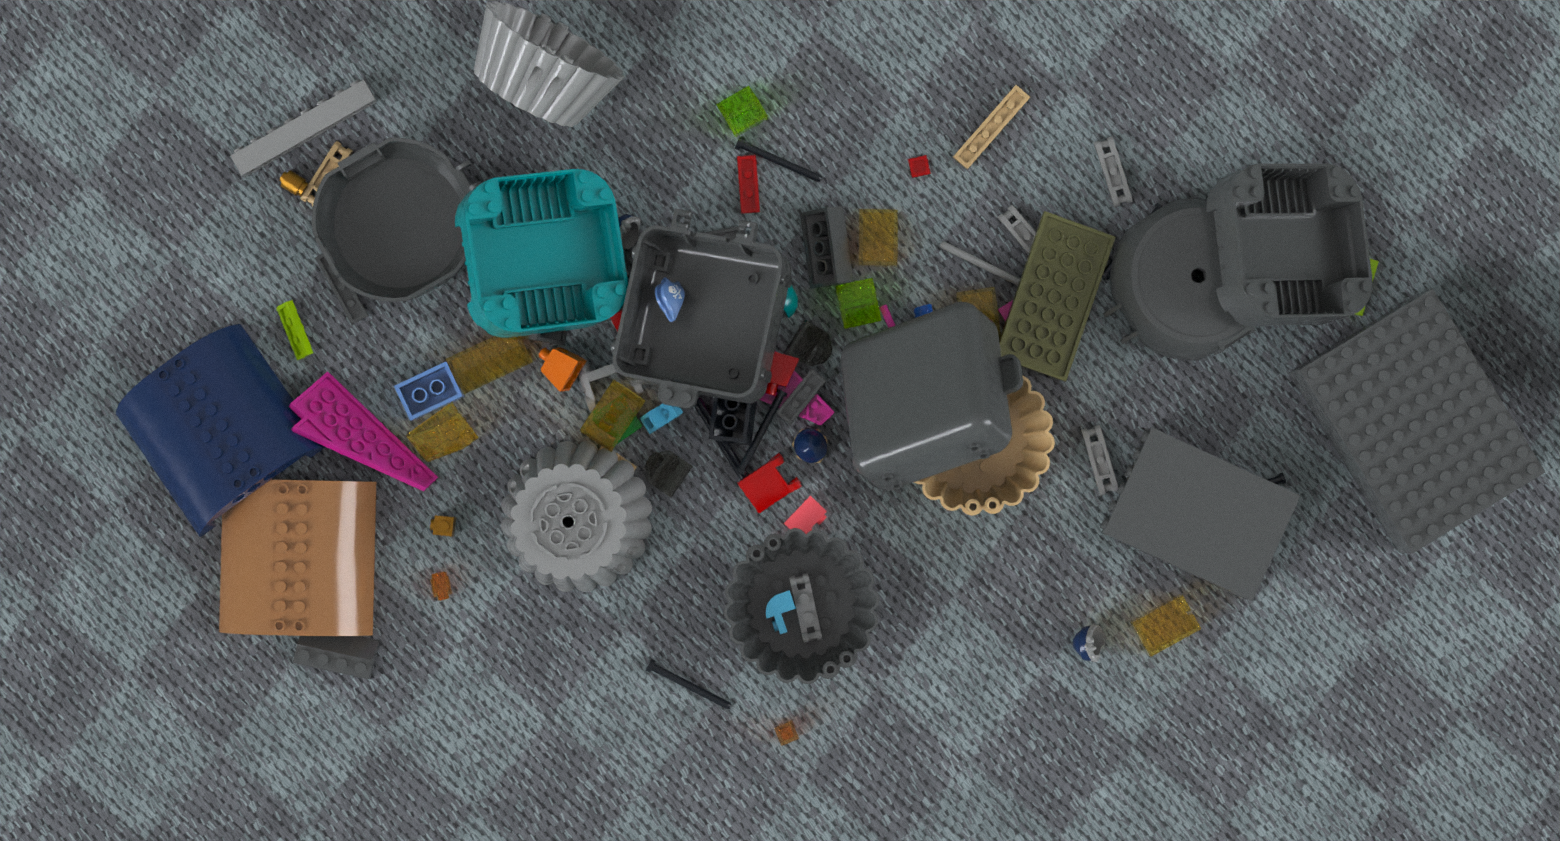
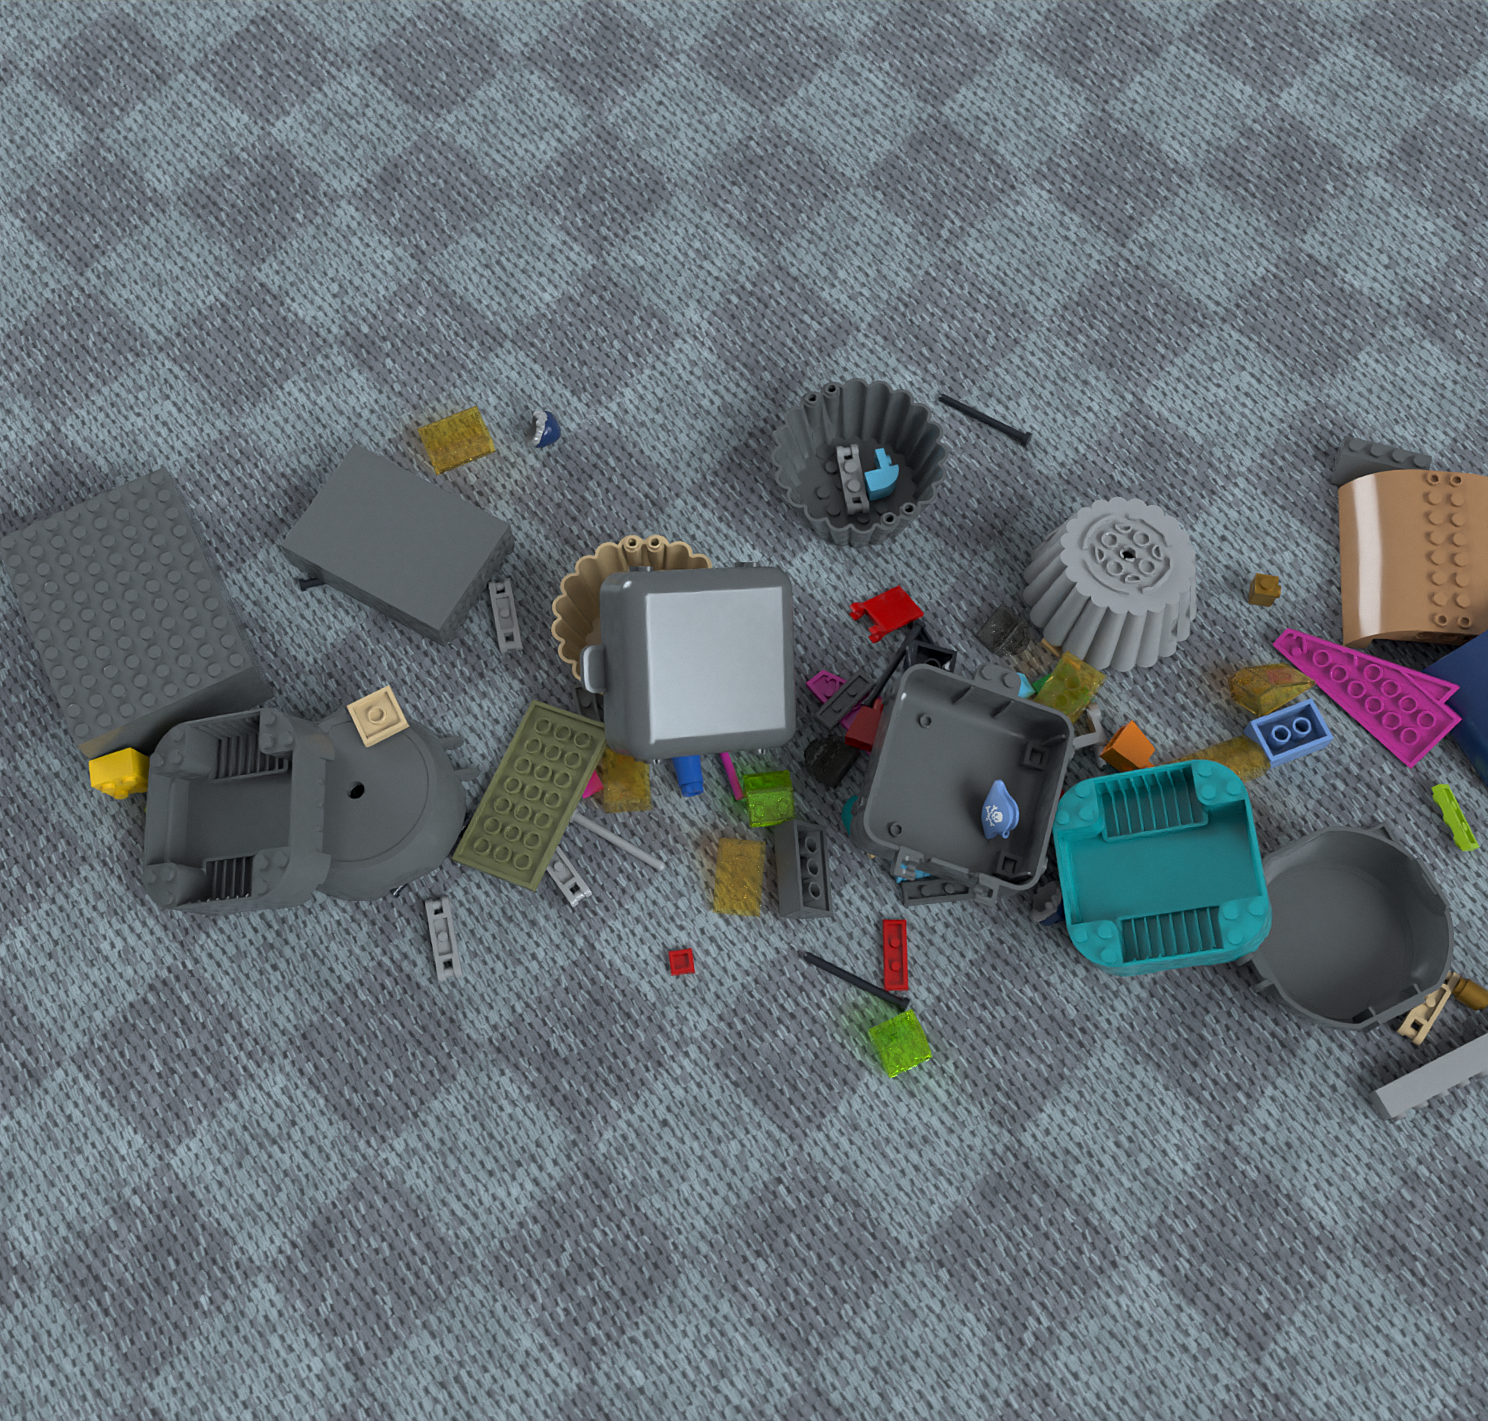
camera: 175 degrees left, 20 degrees down
(441, 586) = (1264, 530): clear orange brick -> none
(541, 65) = (1165, 1106): light grey container -> none
(786, 732) = (880, 364): clear orange brick -> none
(807, 516) = (846, 574): coral brick -> none
(810, 445) = (836, 649): dark blue hair -> none
(991, 127) = (586, 1003): tan plate -> none
(1188, 336) = (378, 716): none -> tan plate
(1399, 285) = (120, 773): none -> yellow brick

